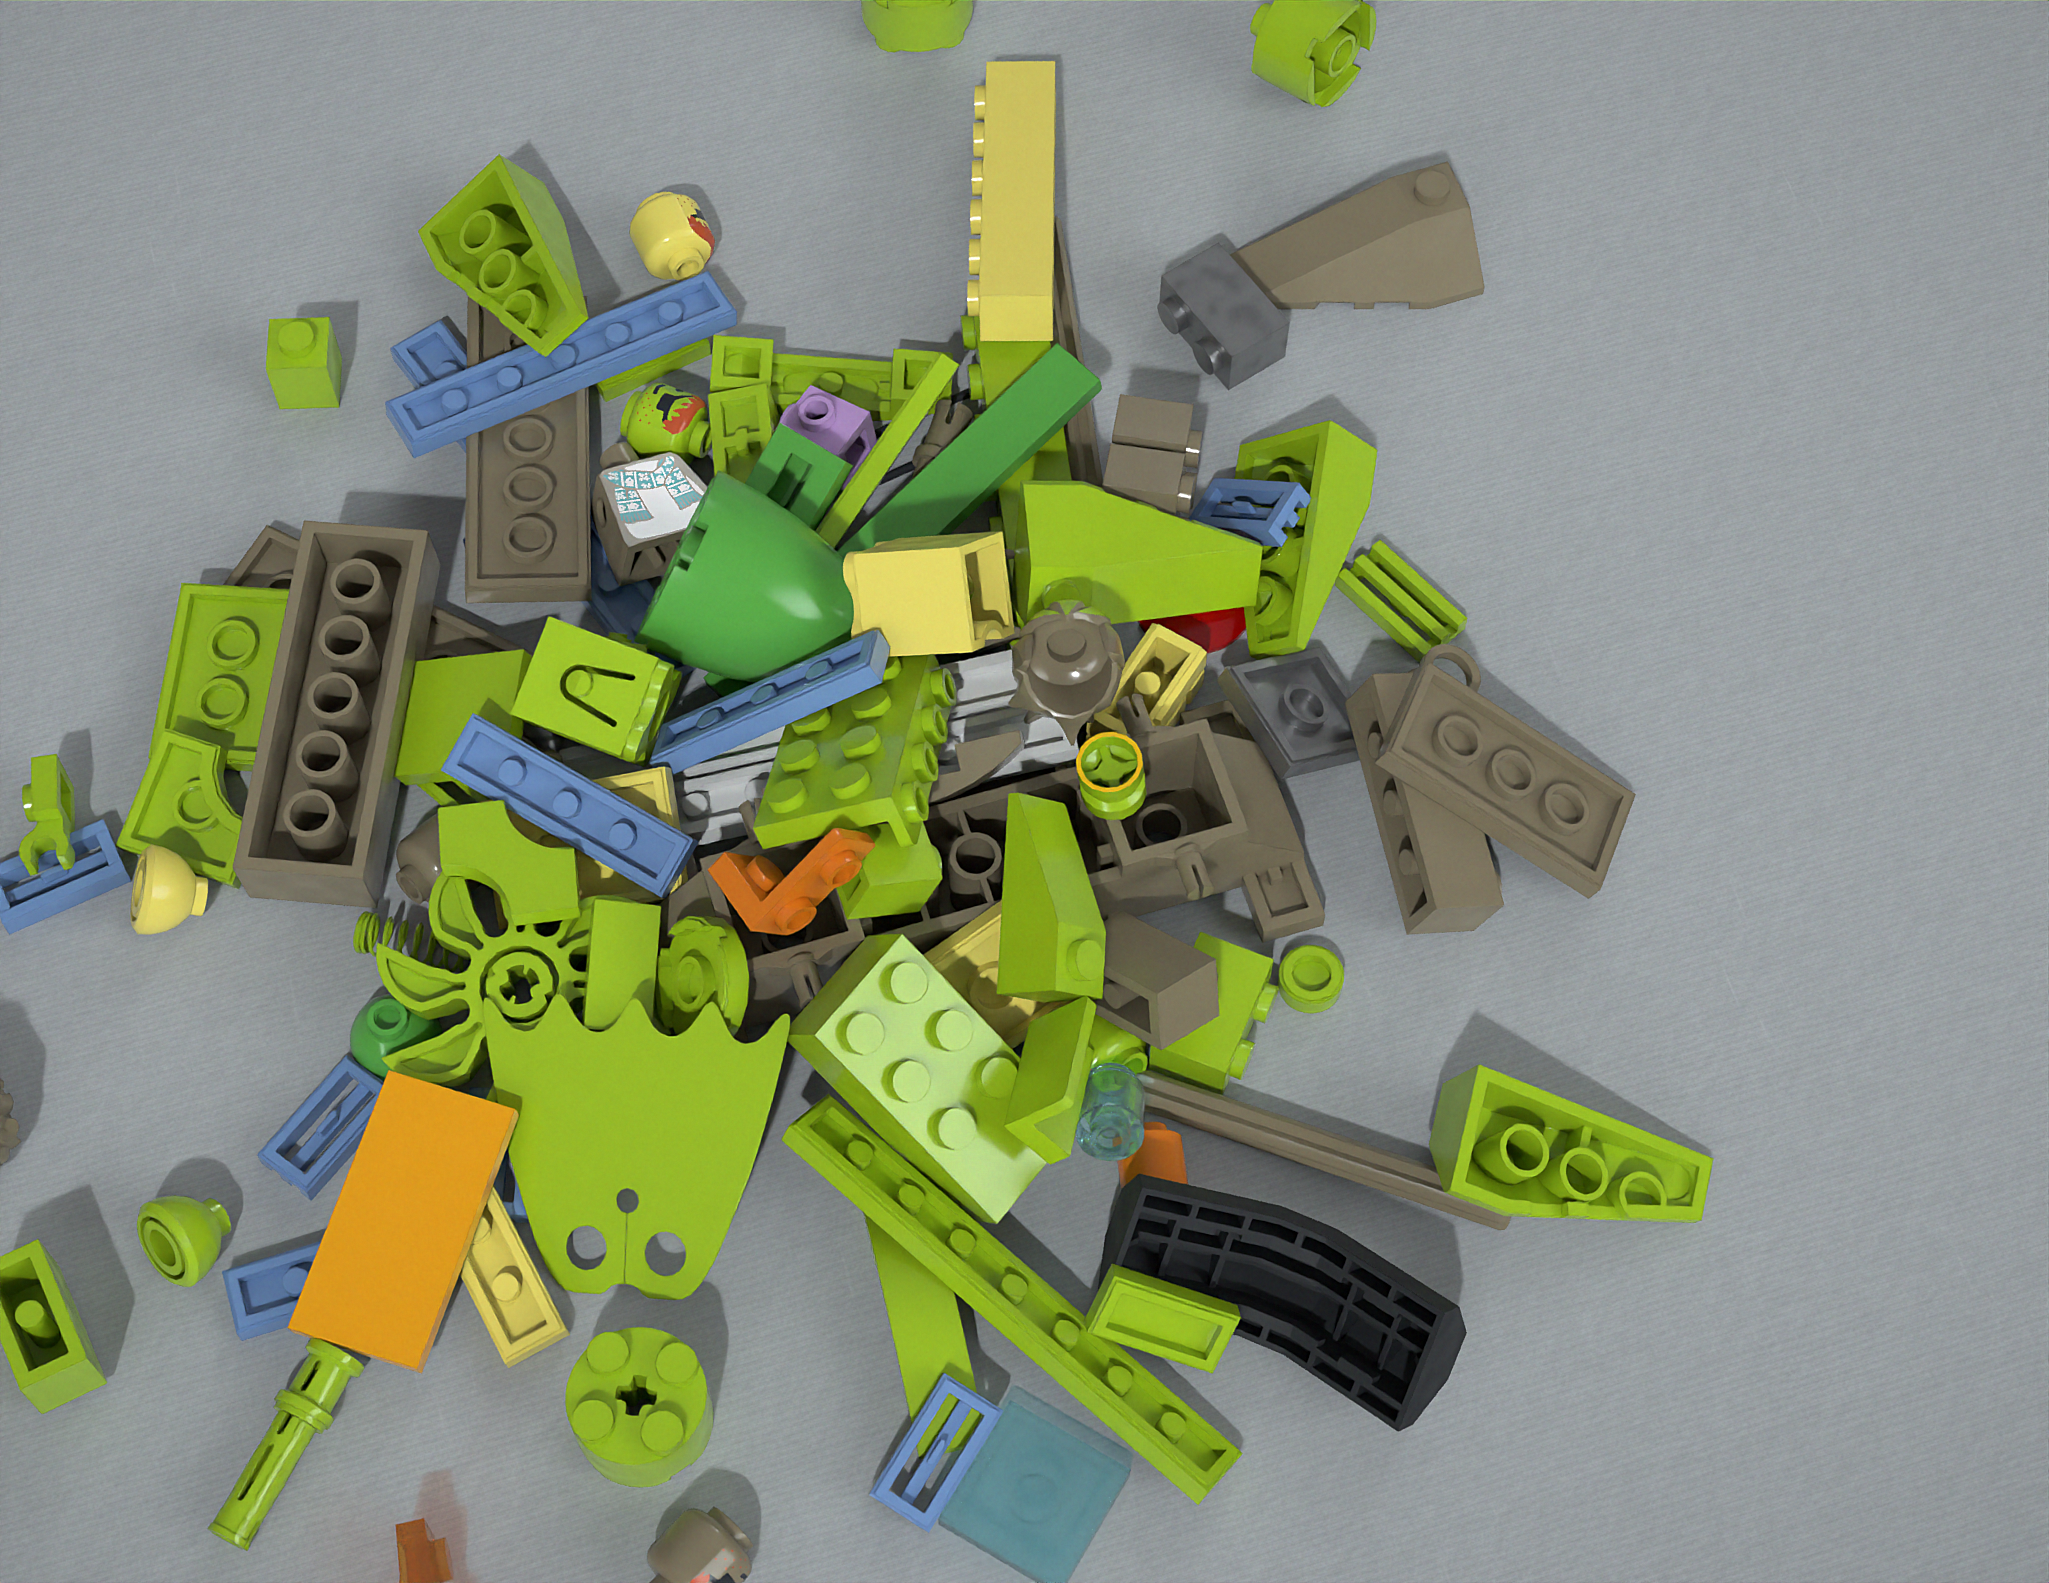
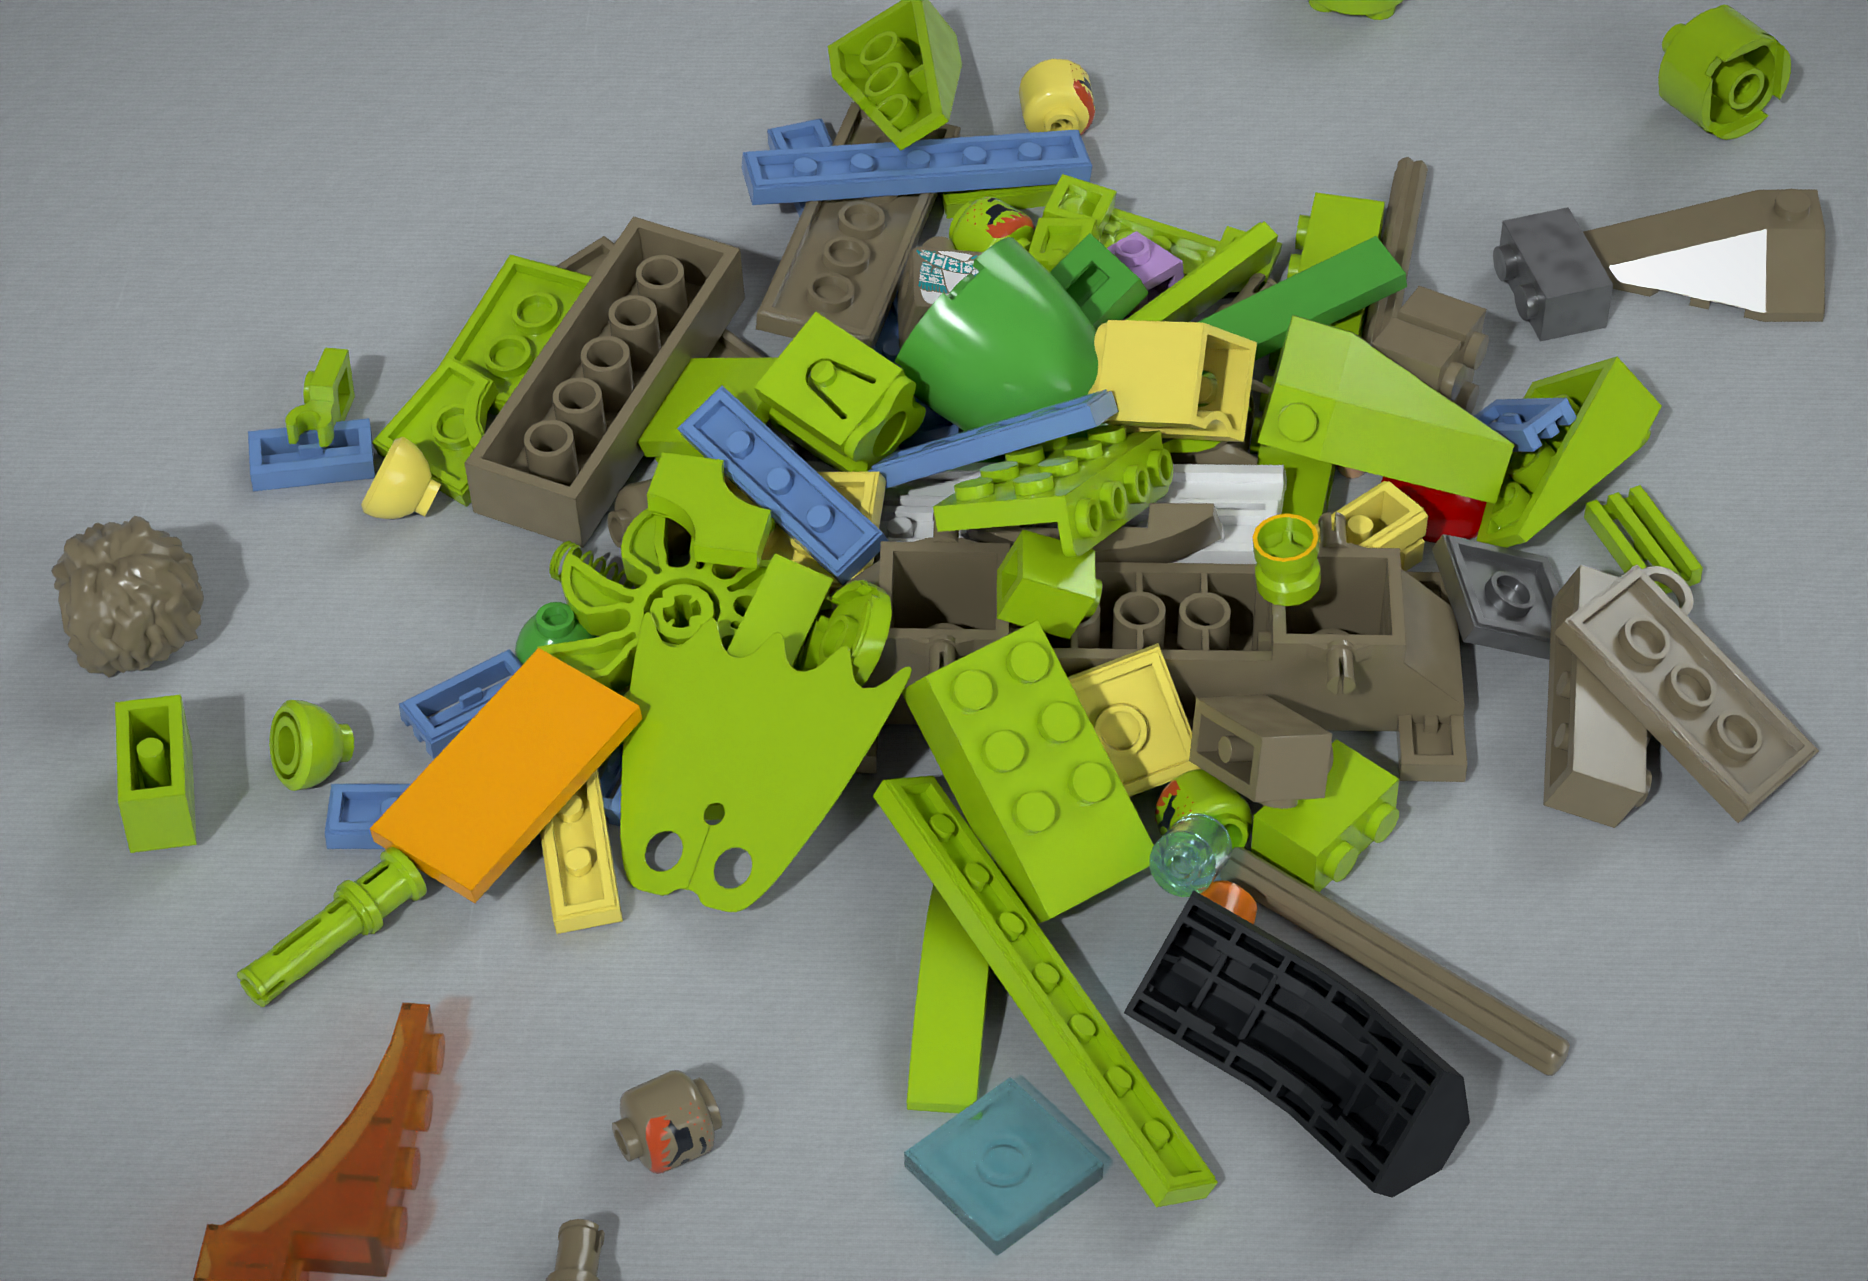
camera: 20 degrees right, 15 degrees down
(304, 363) = (685, 119): lime brick -> none
(617, 1374) = (661, 980): lime brick -> none
(787, 904) = (950, 572): orange bracket -> none
(967, 1400) = (953, 1104): medium blue tile -> none
(1016, 202) = (1384, 132): light yellow brick -> none
(1049, 911) = (1186, 658): lime slope -> none
(1052, 1080) = (1141, 803): lime panel -> none
(1066, 665) = (1277, 461): dark tan hair -> none
(1162, 1318) = (1179, 1040): lime tile -> none
(1310, 979) = (1436, 822): lime tile -> none
(1556, 1159) = (1613, 1008): lime wedge -> none

